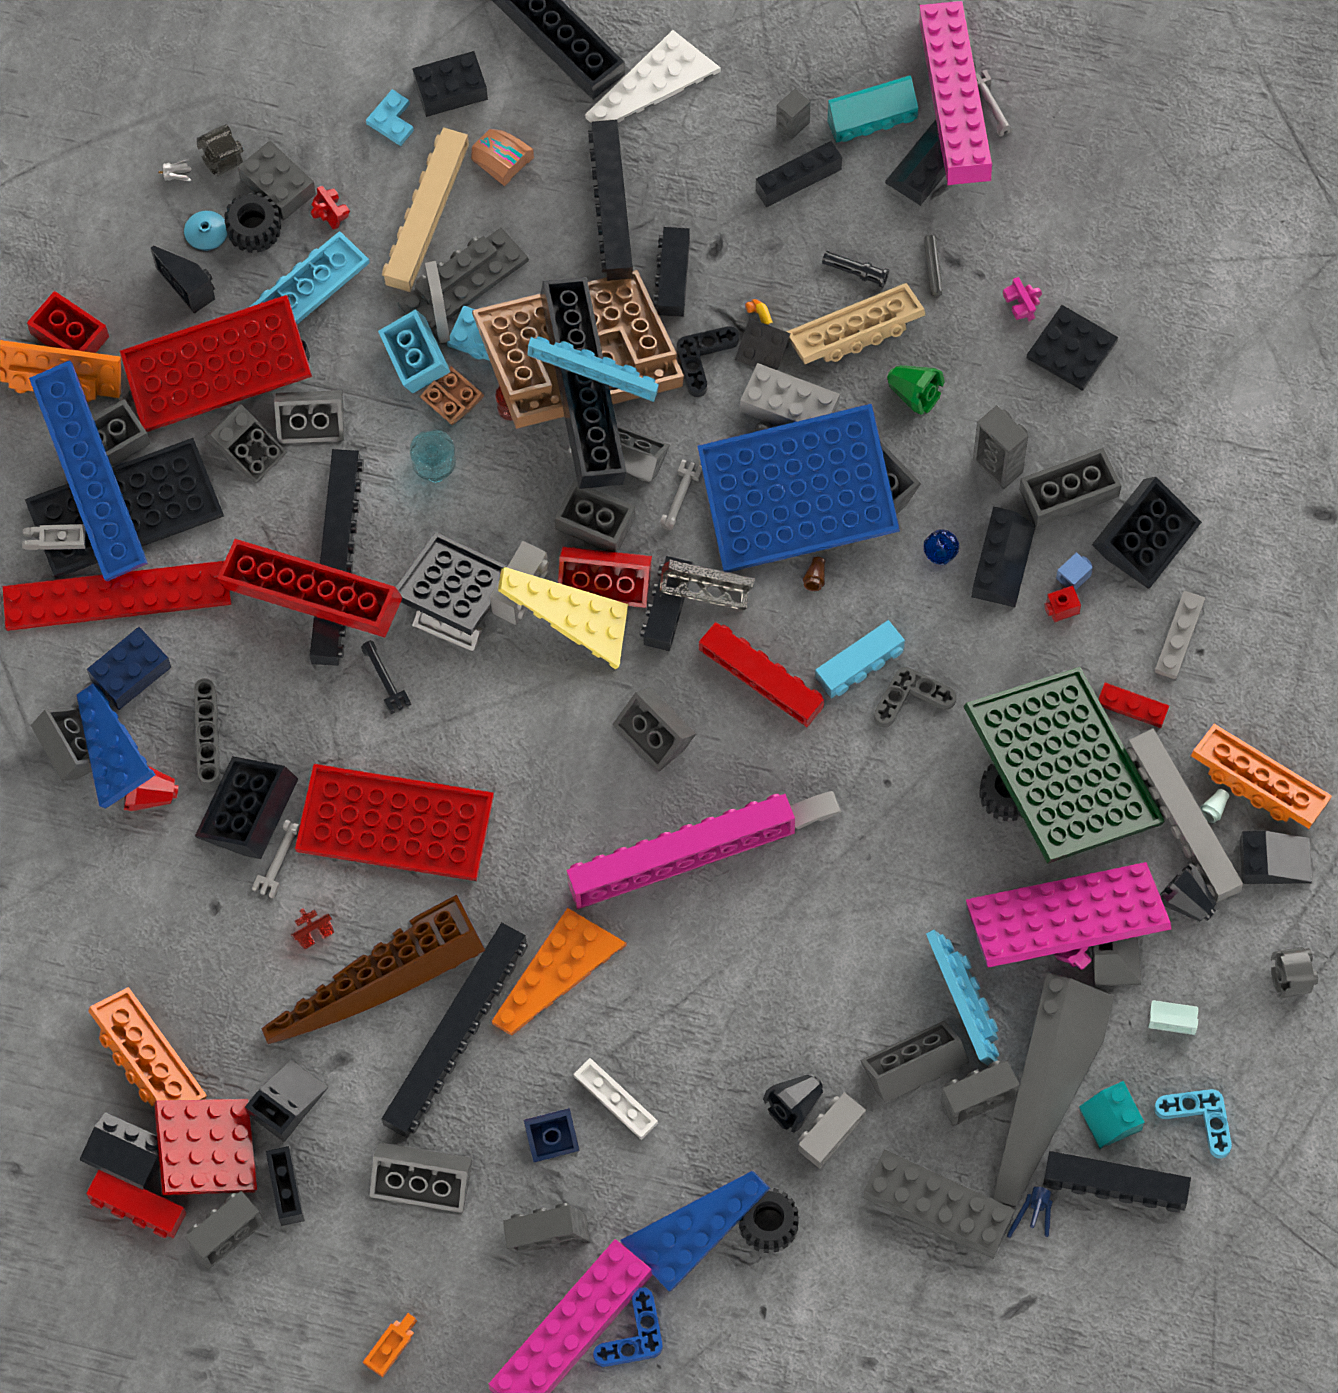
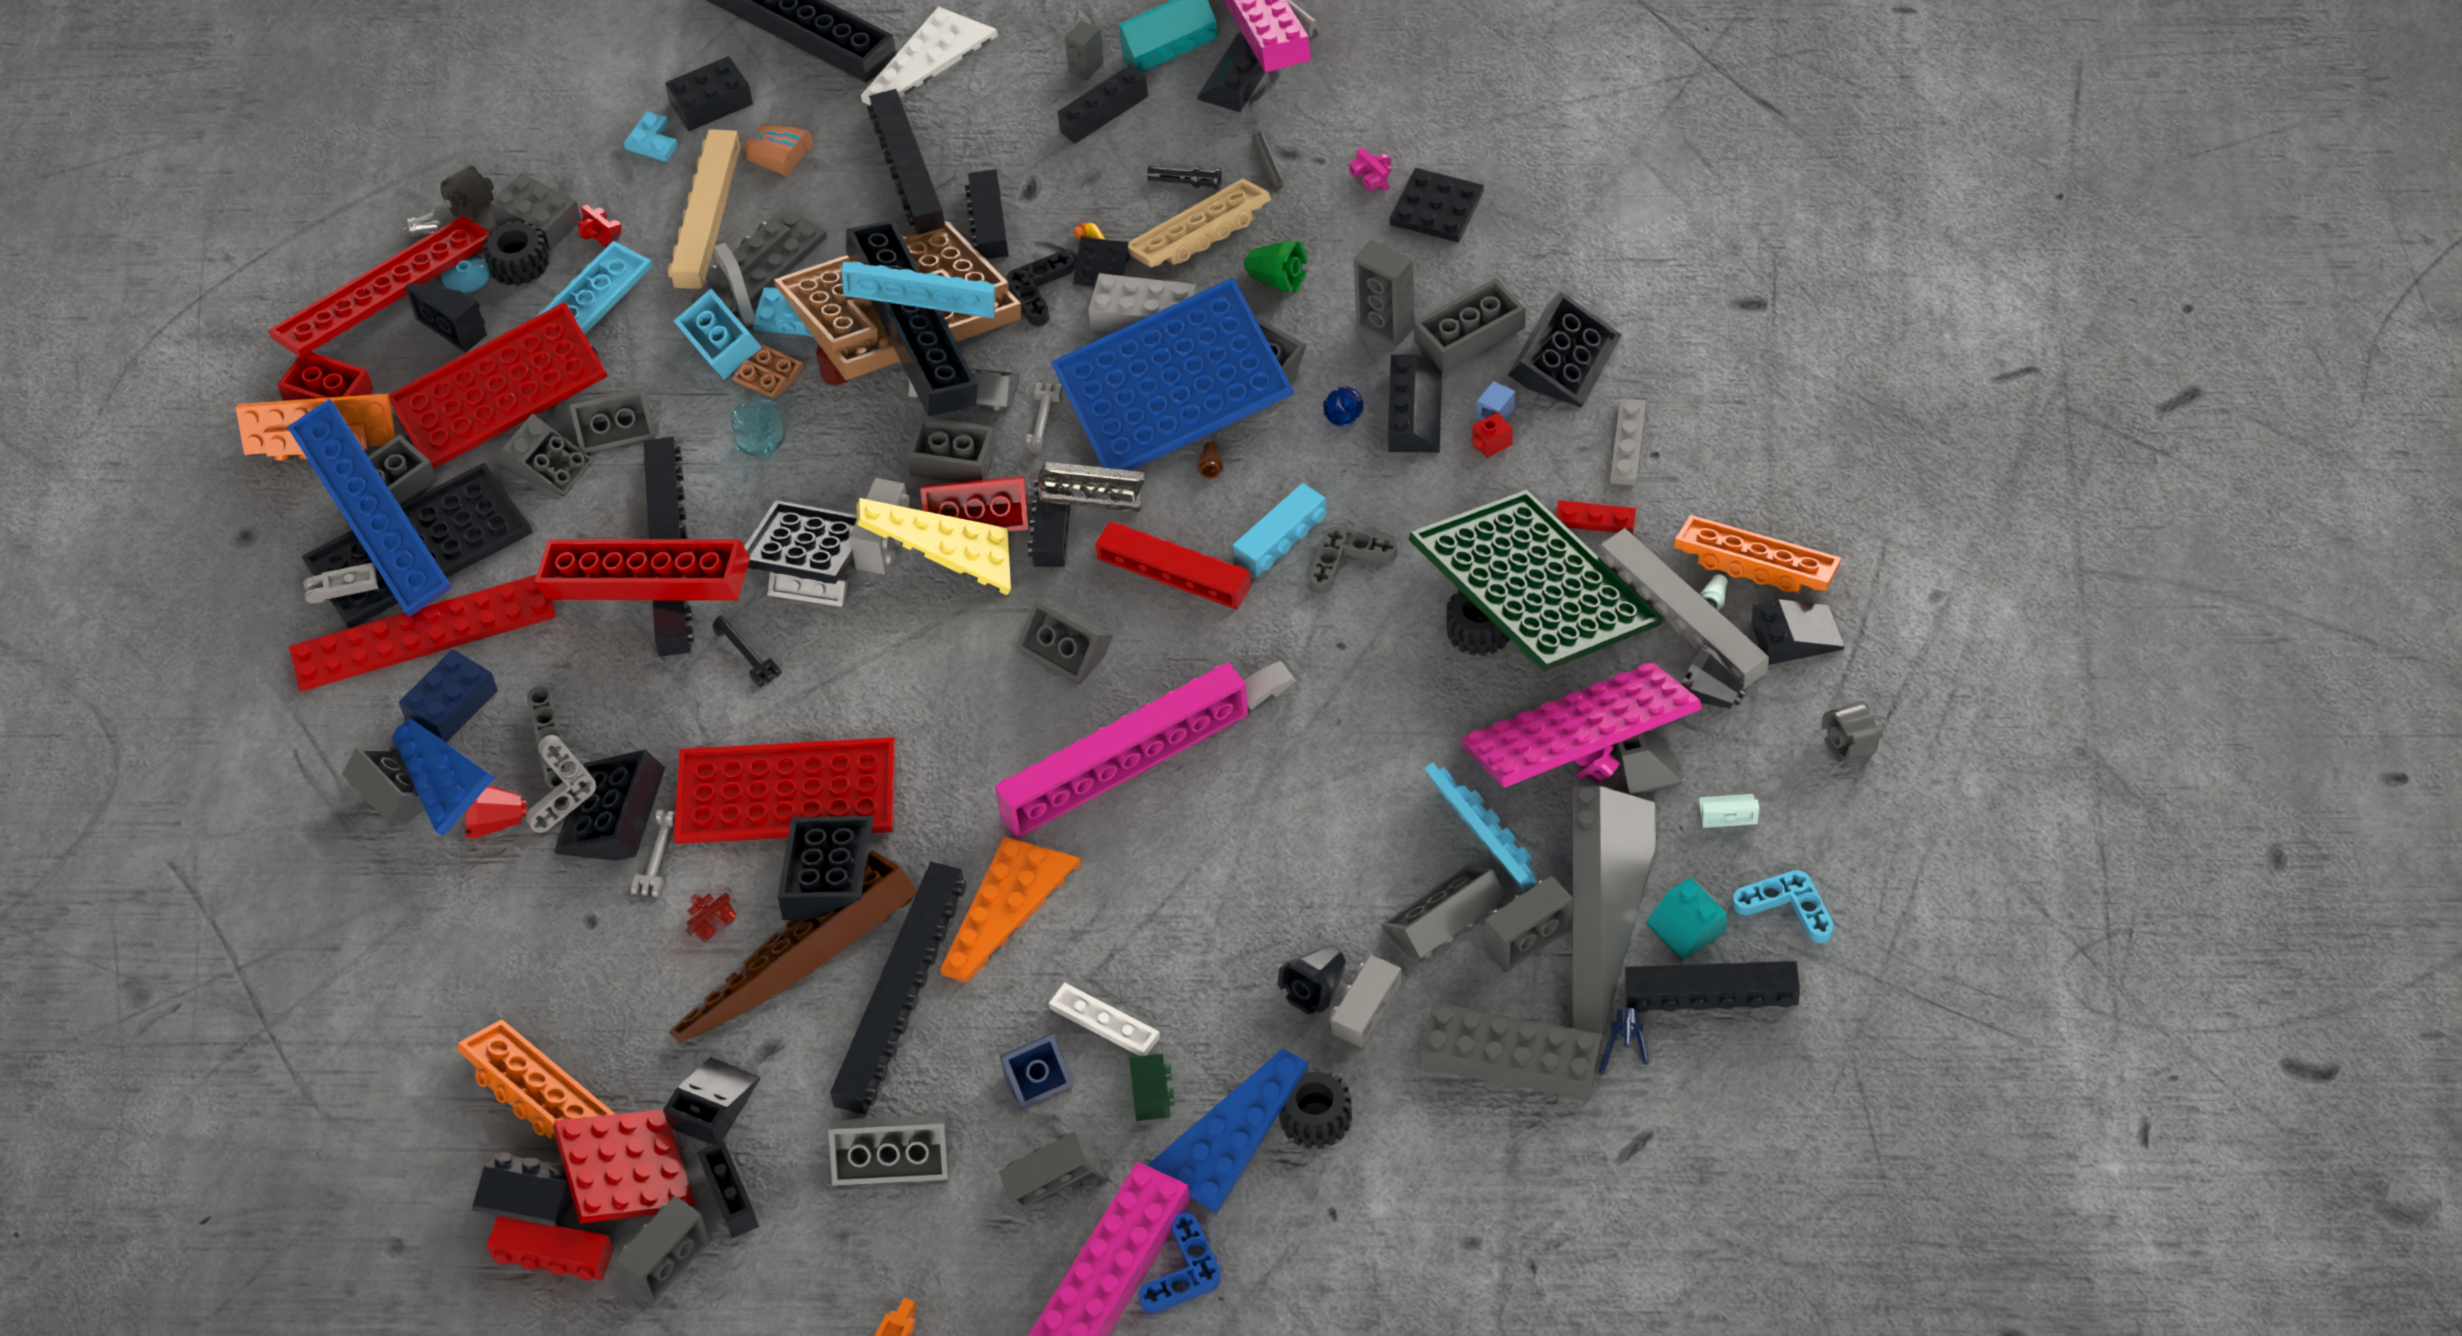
camera: 10 degrees left, 15 degrees down
(130, 235) = (379, 287): none -> red plate
(216, 780) = (570, 781): none -> light grey beam
(413, 908) = (823, 865): none -> black slope
(640, 1169) = (1149, 1087): none -> clear green brick

